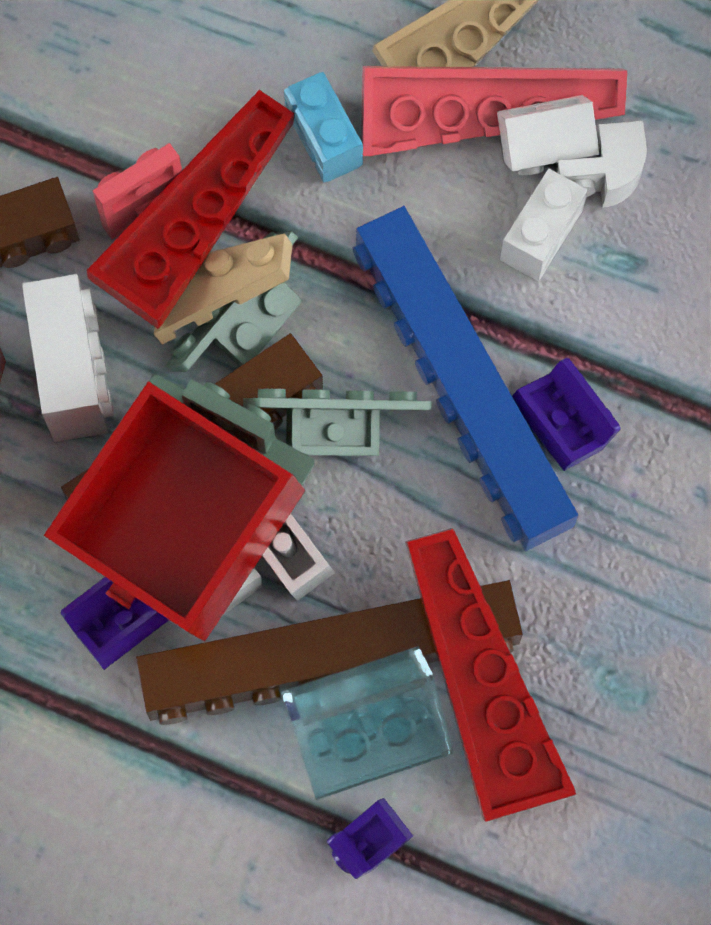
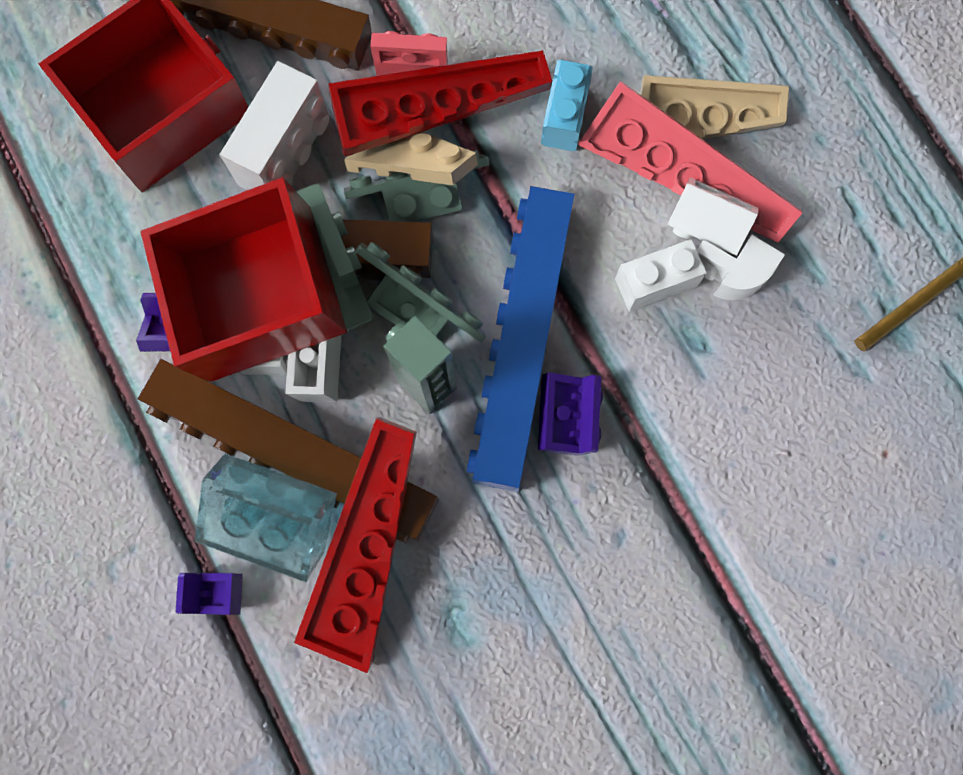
camera: 40 degrees right, 5 degrees up
(405, 464) = (421, 363): none -> sand green brick

